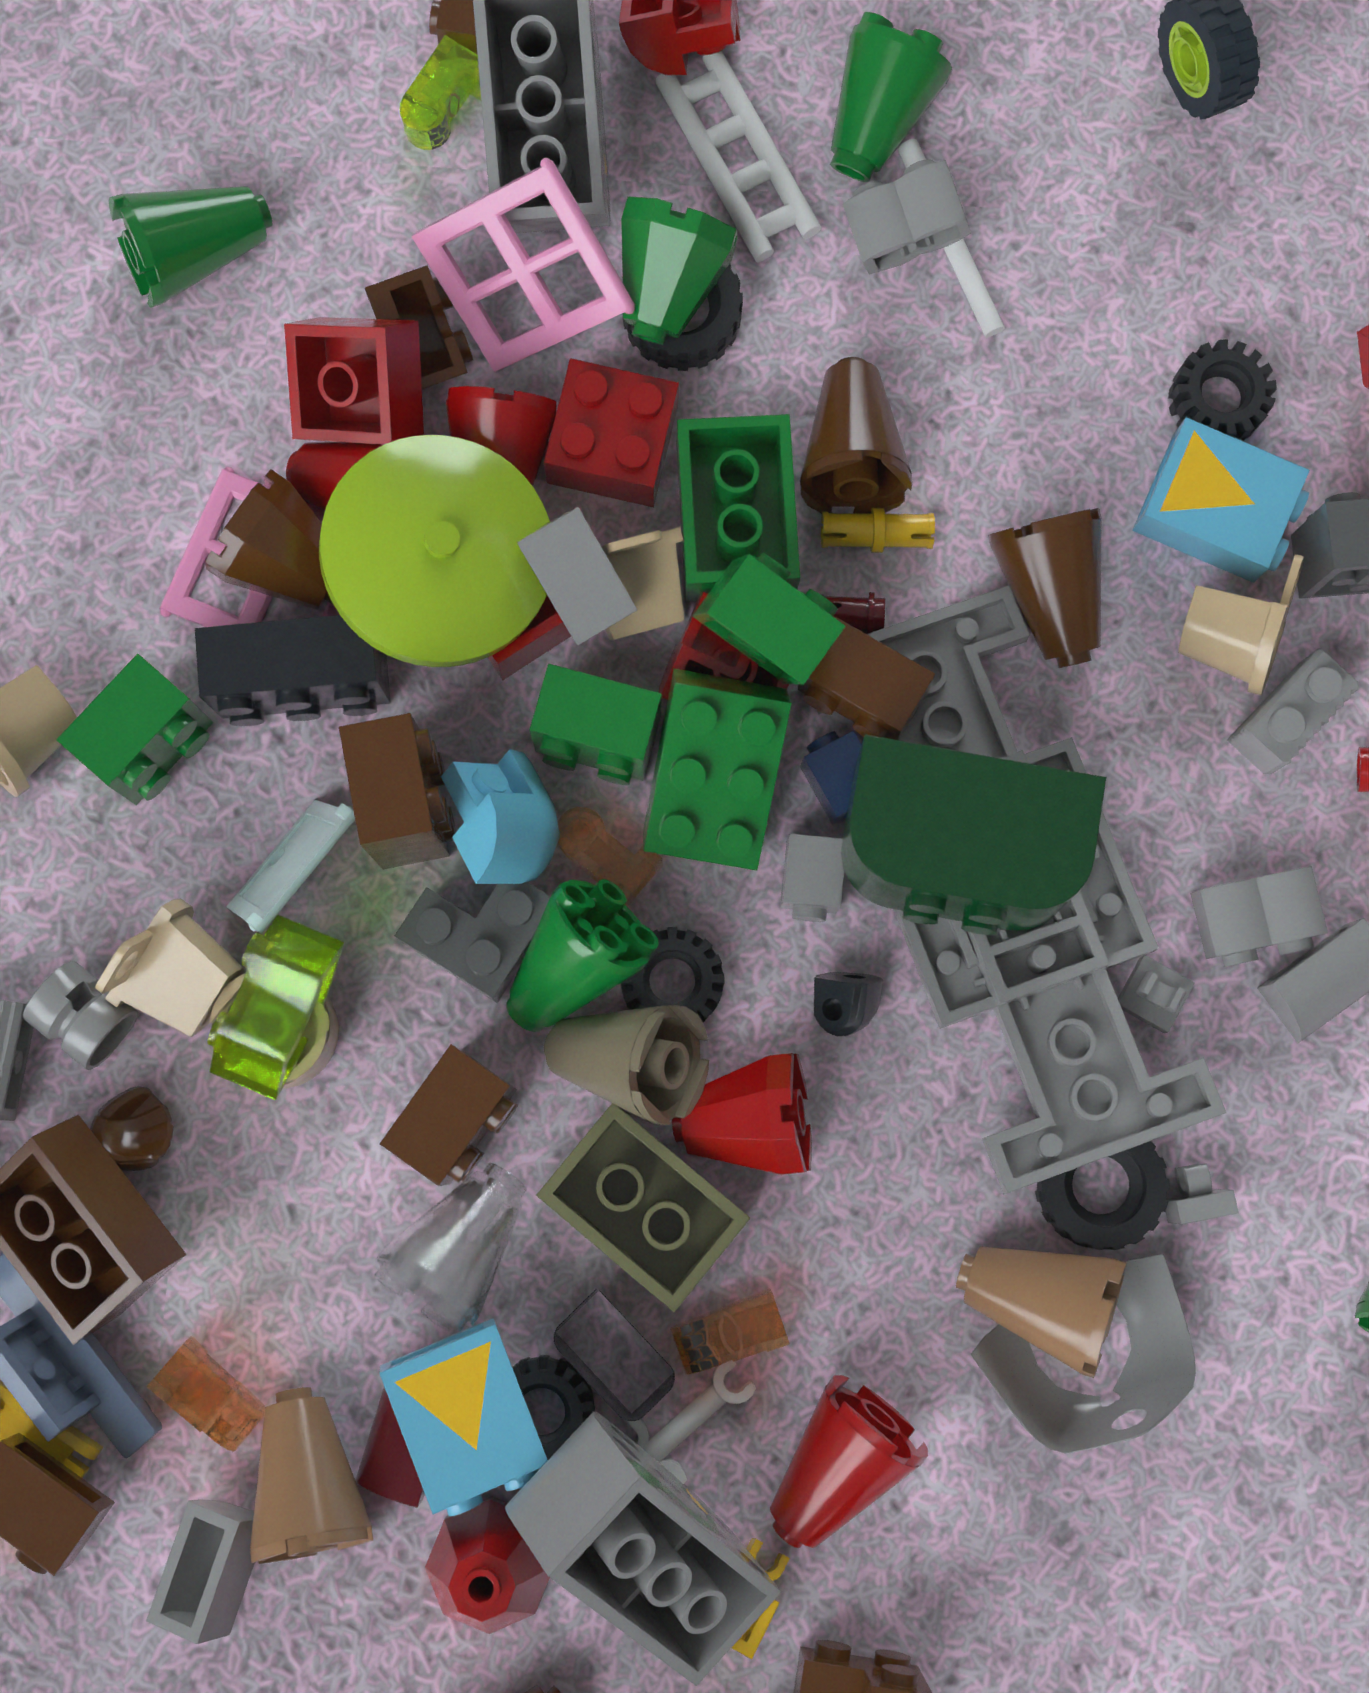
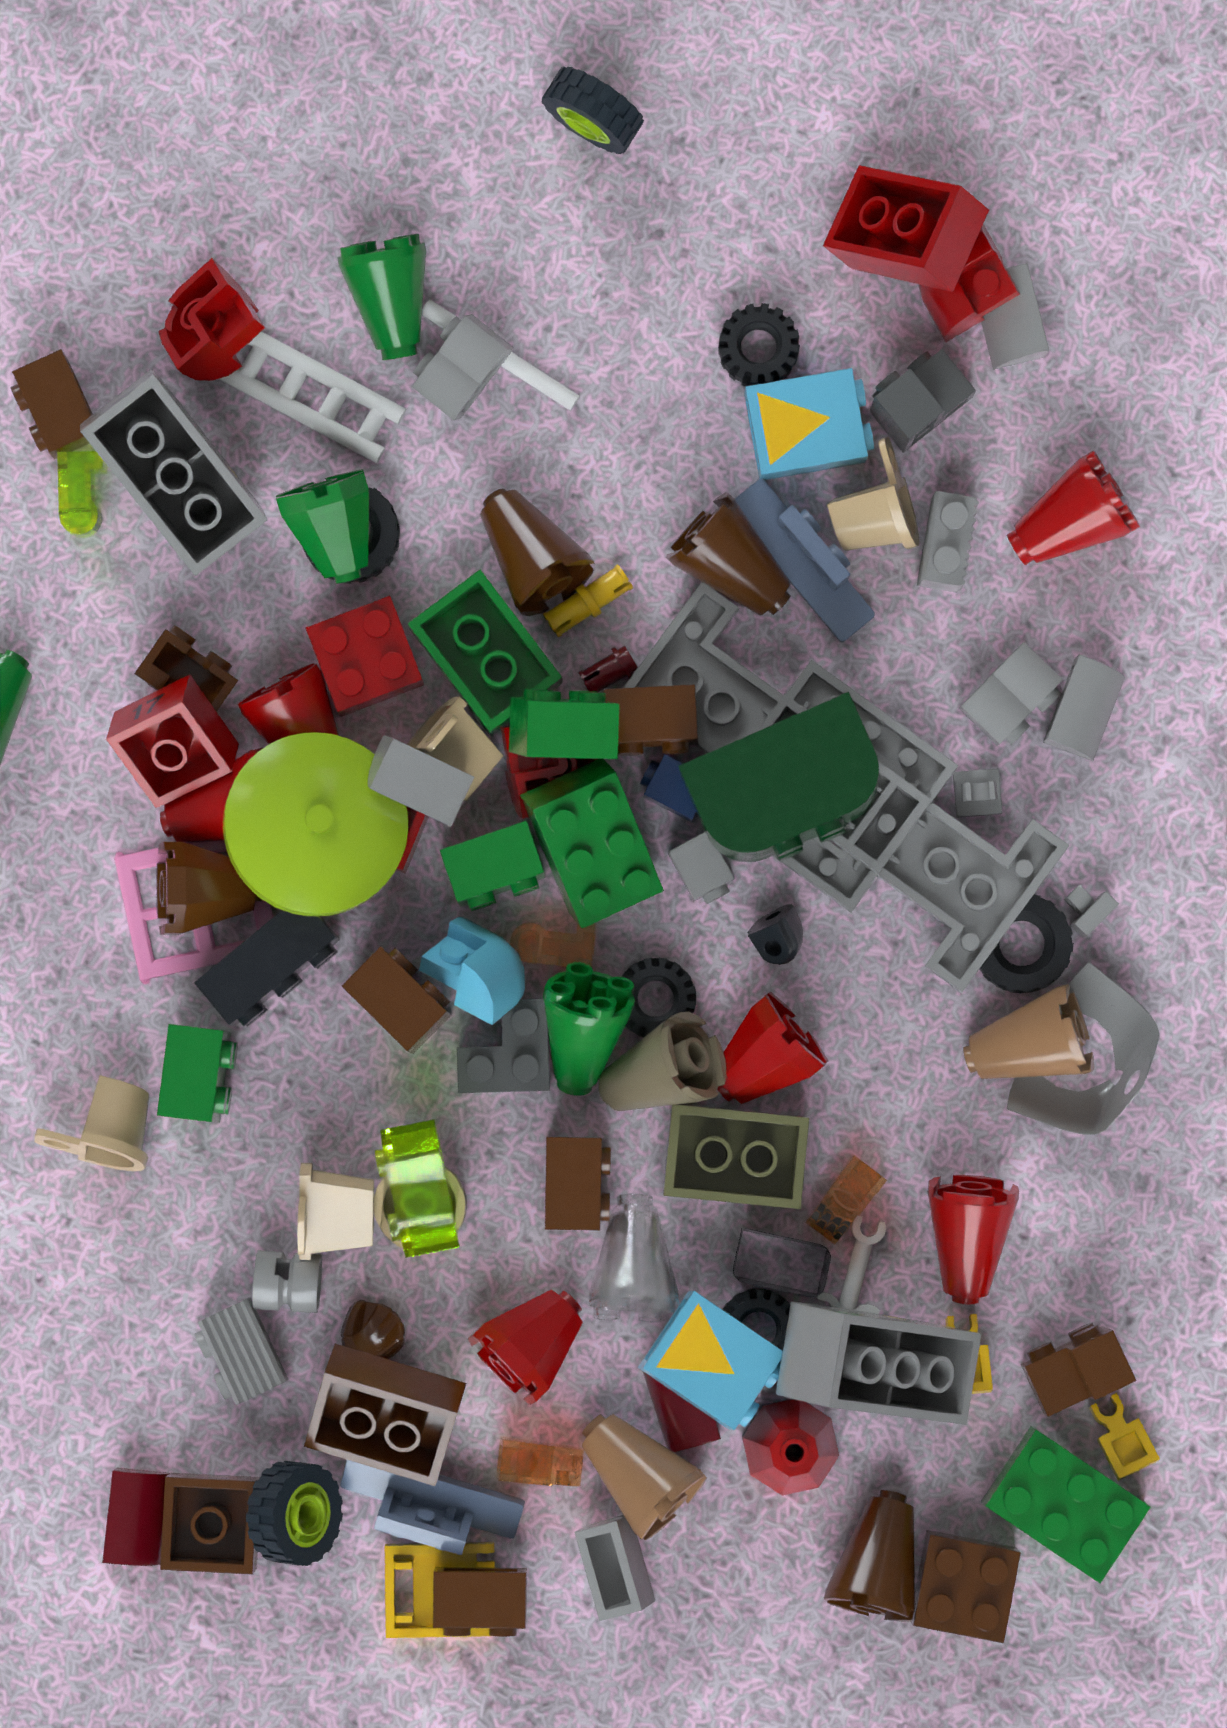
camera: 30 degrees left, 5 degrees up
(290, 863) = (358, 1092): light aqua container -> none
(290, 1256) = (530, 1342): none -> red cone
(523, 269) = (194, 571): bright pink window -> none
(1135, 638) = (806, 560): none -> sand blue bracket

